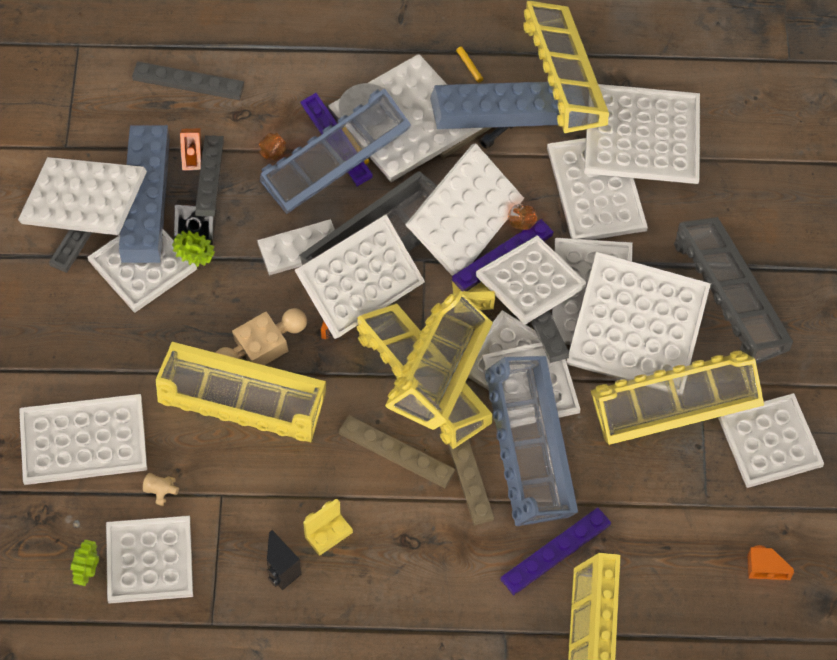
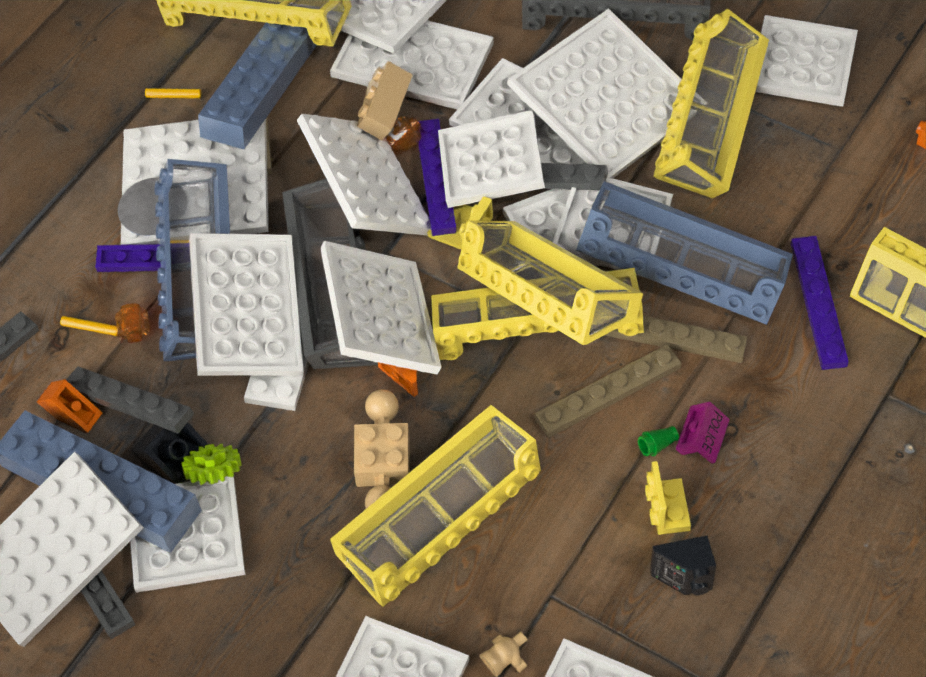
camera: 55 degrees left, 5 degrees down
(257, 122) = (88, 325): none -> yellow piece
(314, 198) = (245, 305): none -> white plate
(373, 500) = (656, 440): none -> green cone
(398, 526) = (703, 431): none -> magenta panel
(488, 139) = (281, 119): black bar -> none
(533, 187) = (383, 100): none -> tan wedge

